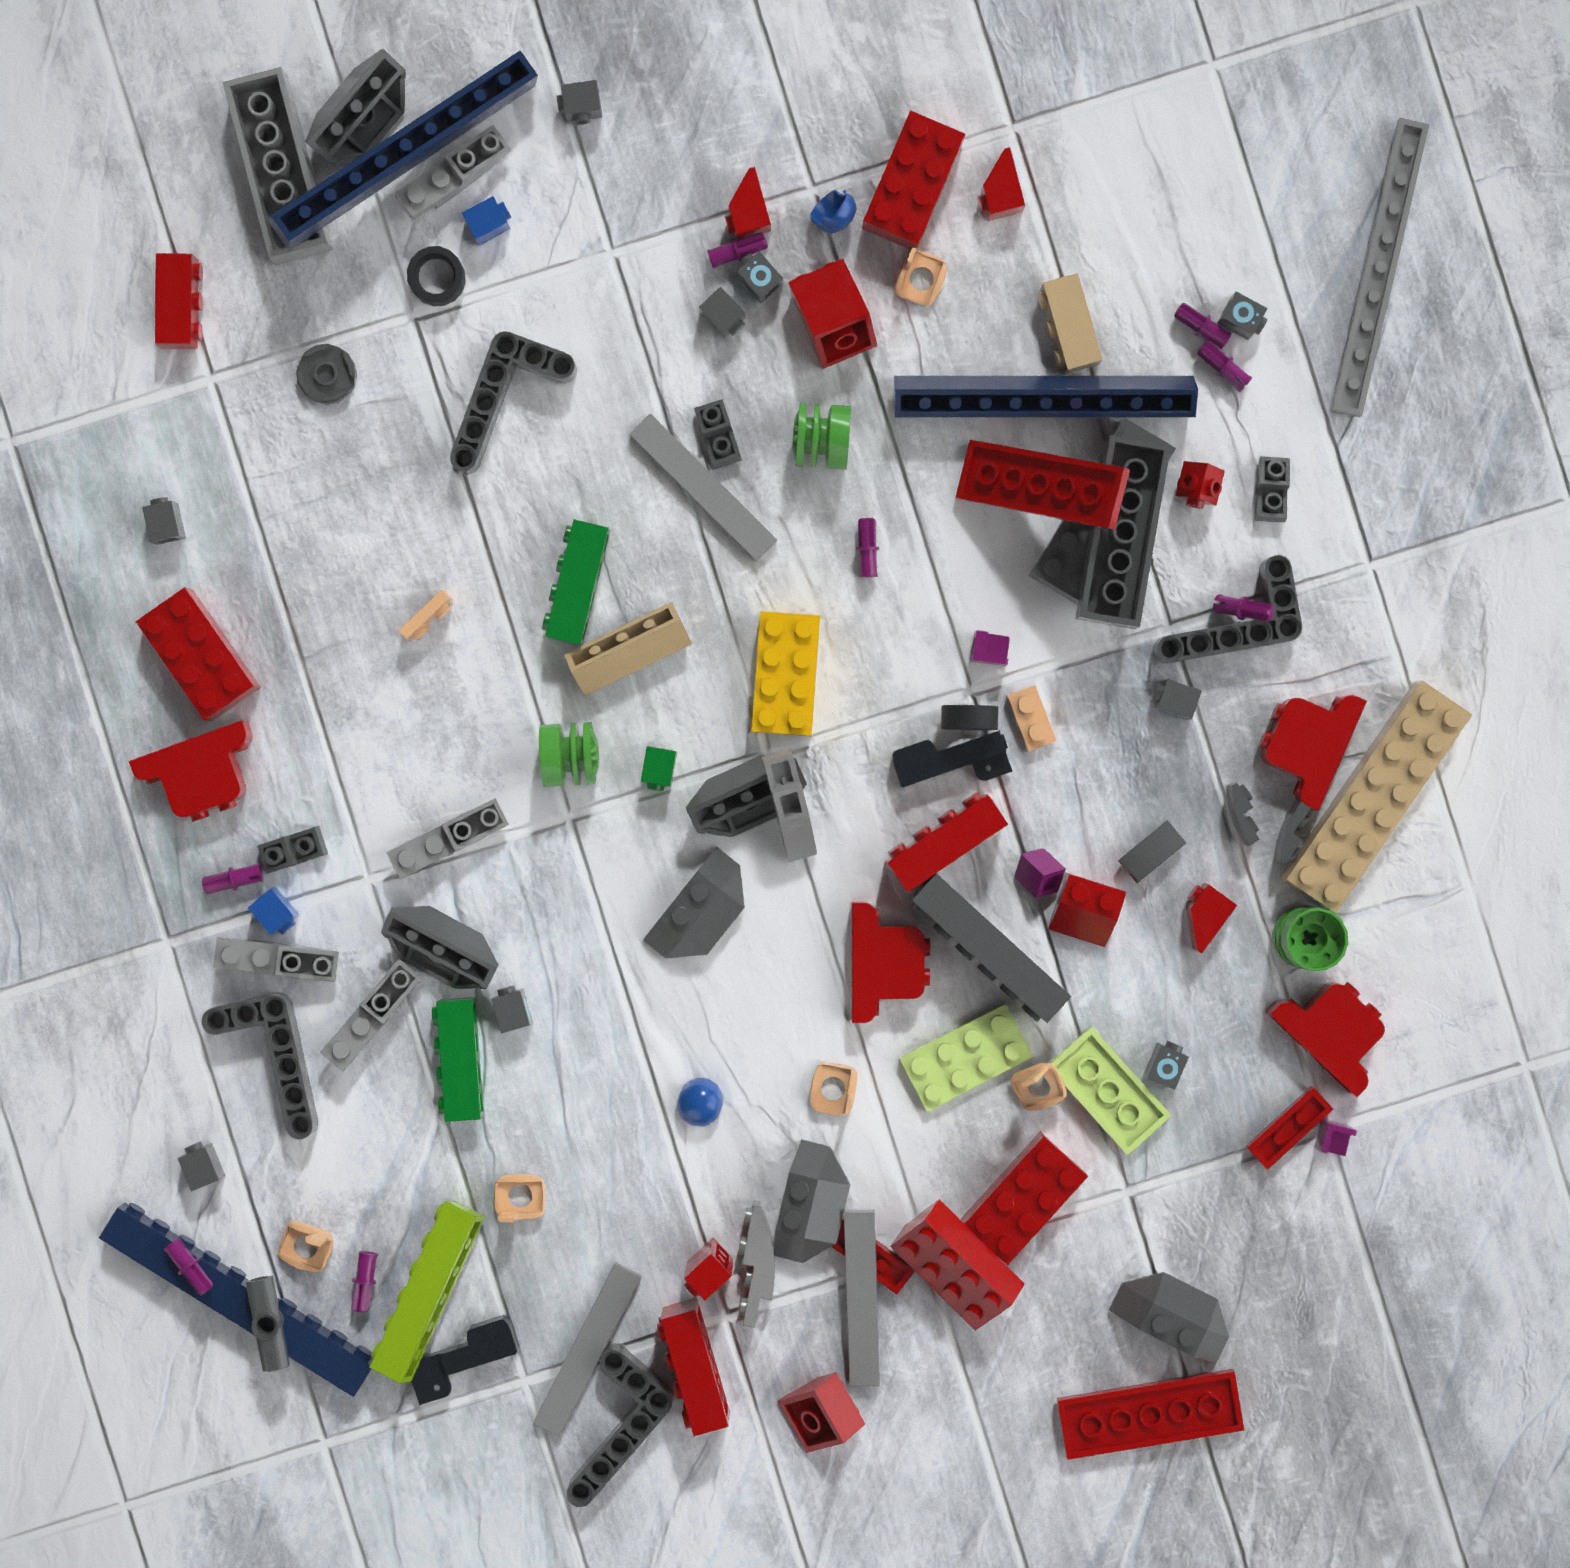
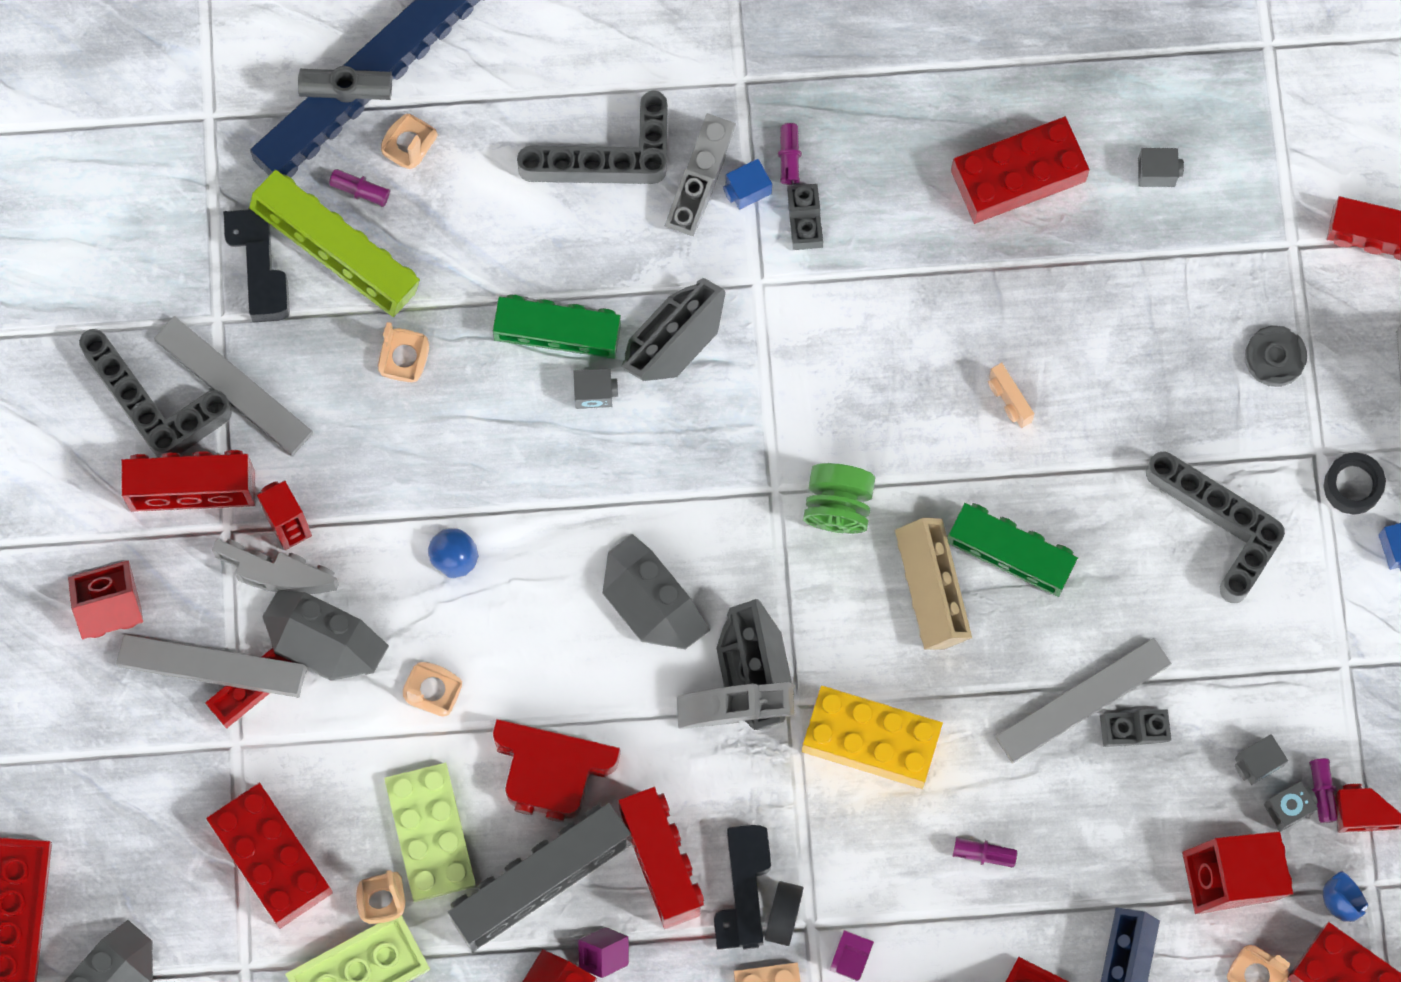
camera: 110 degrees right, 15 degrees down
(189, 1267) = (420, 24): magenta axle -> none
(199, 771) = (903, 146): red brick -> none
(200, 1165) = (514, 61): dark grey brick -> none
(371, 1015) = (621, 252): light grey slope -> none
(447, 838) = (780, 364): light grey slope -> none
(658, 768) = (804, 588): green brick -> none
(822, 436) = (1112, 822): bright green wheel -> none
(957, 1265) = (219, 767): red brick -> none

